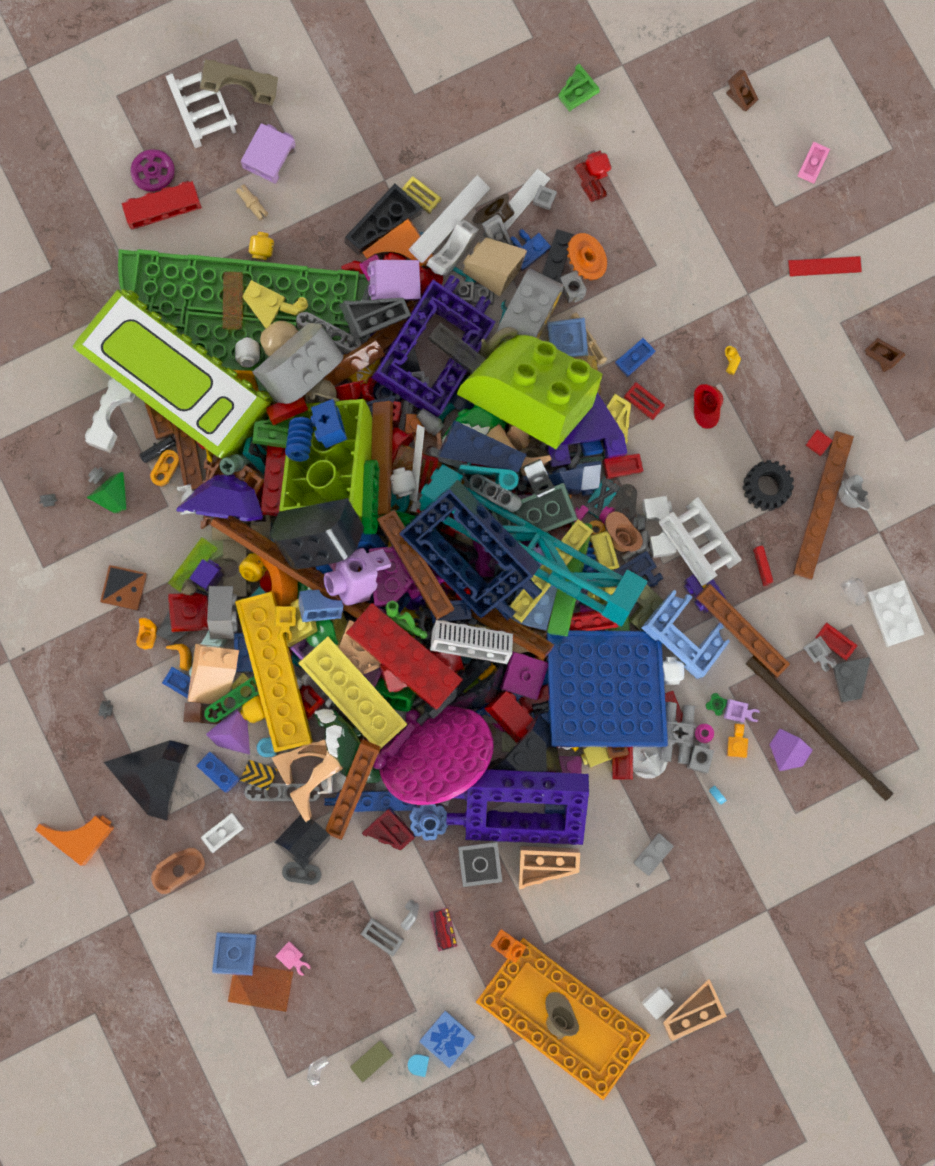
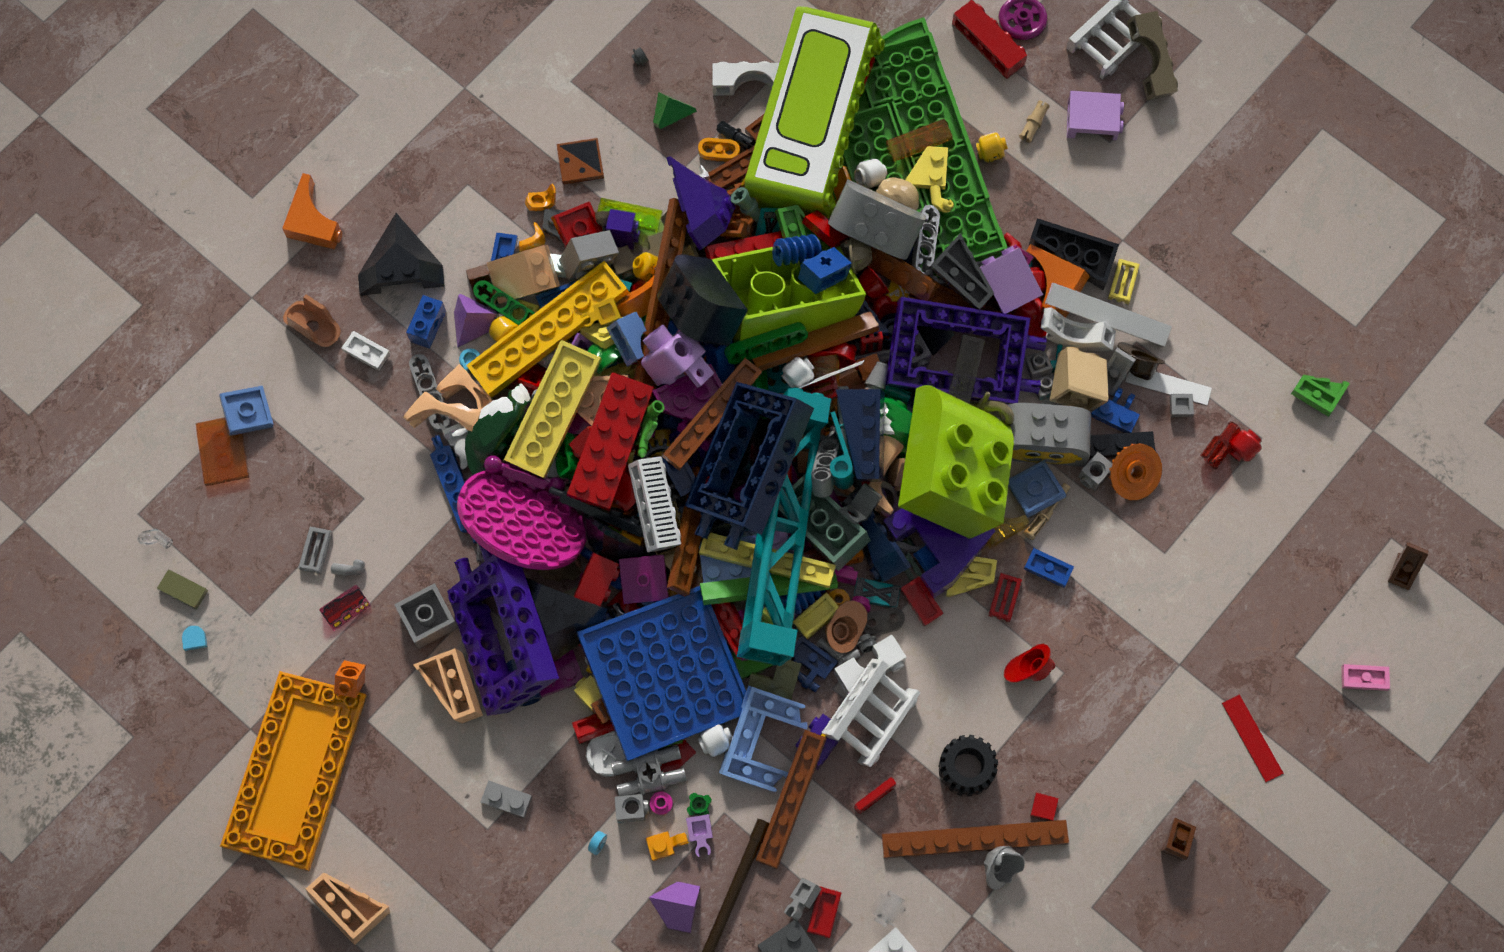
camera: 70 degrees right, 10 degrees down
(95, 475) = (683, 89): light grey plate -> none
(106, 709) = (450, 192): dark grey plate -> none
(258, 774) = (438, 361): sticker -> none
(290, 957) = (262, 468): bright pink plate -> none
(301, 874) = (353, 444): dark grey plate -> none
(303, 840) = (384, 430): black slope -> none
(352, 789) = (453, 449): dark orange plate -> none
(390, 830) = (429, 513): dark red wing -> none
(428, 821) = (453, 545): medium blue plant -> none
(447, 1039) = (231, 657): medium blue tile -> none
(561, 1018) = (294, 761): dark tan piece -> none
(658, 1002) = (345, 864): white brick -> none
(733, 358) = (1097, 675): yellow arm -> none

